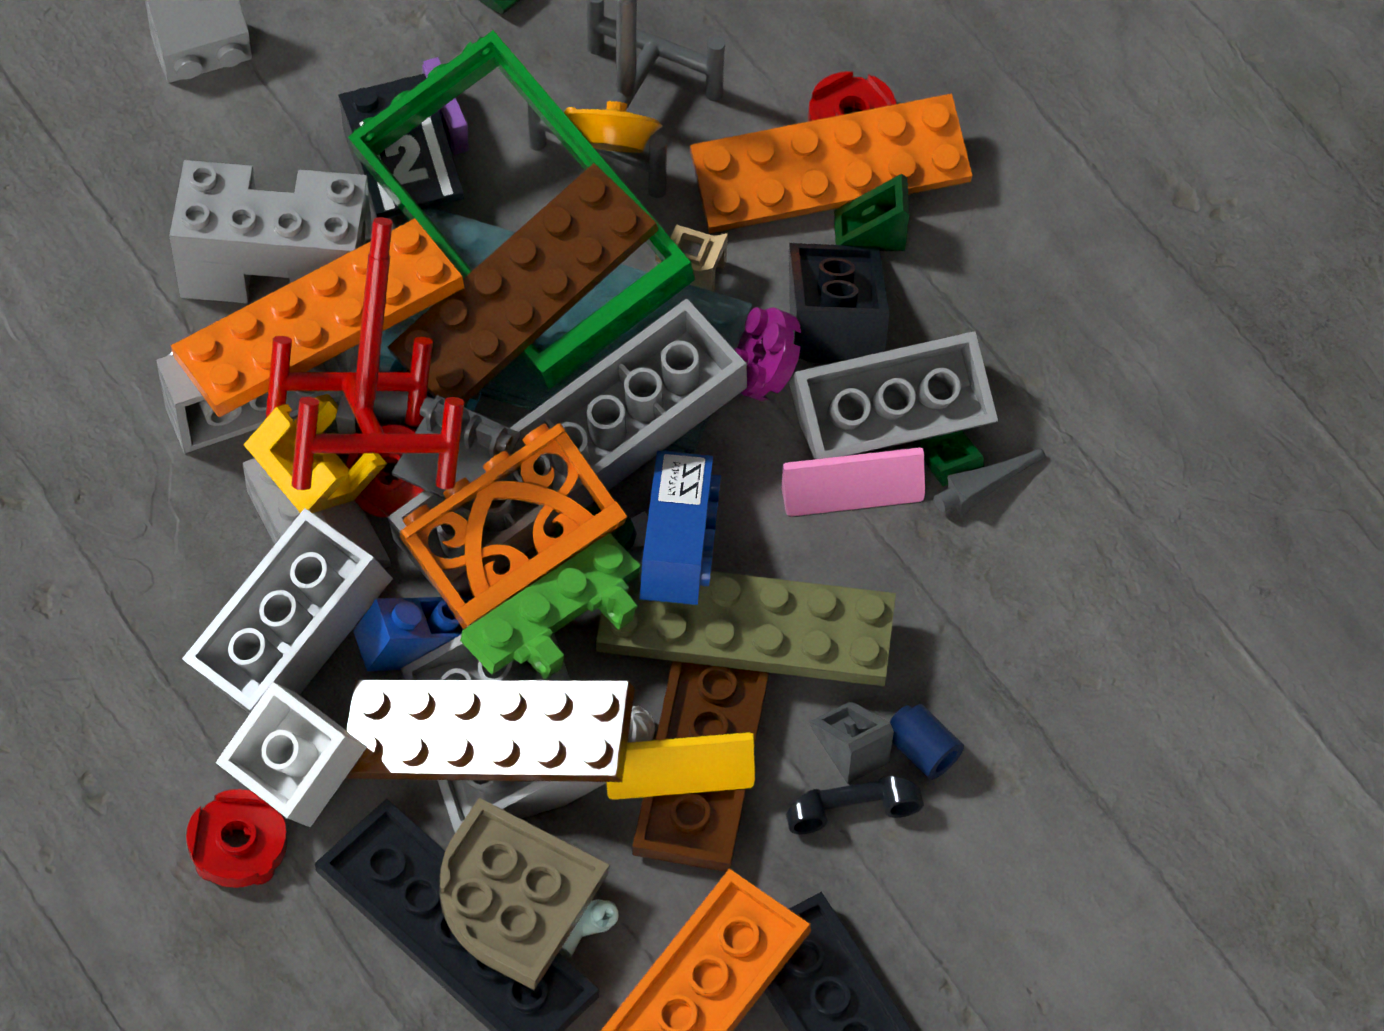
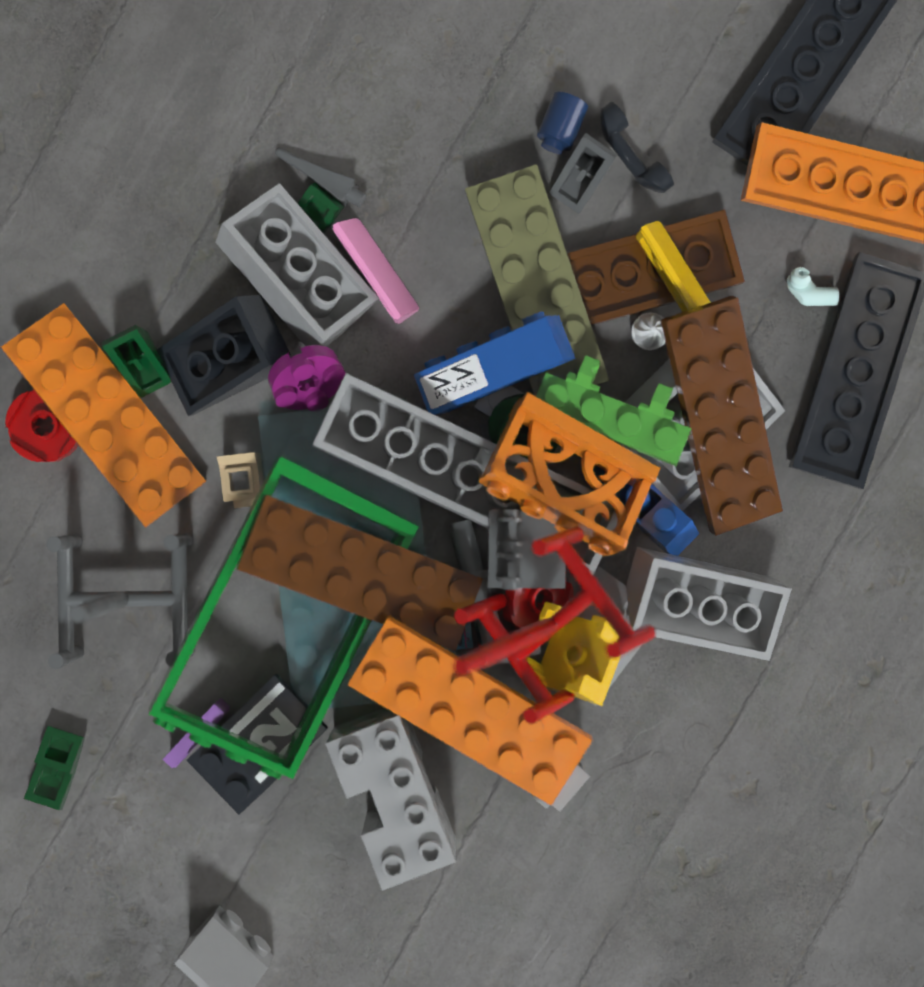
camera: 120 degrees left, 30 degrees up
(236, 865) = (884, 563): red plate -> none
(291, 754) = (802, 545): white brick -> none
(514, 891) = (827, 339): dark tan plate -> none
(614, 127) = (177, 584): light orange piece -> none

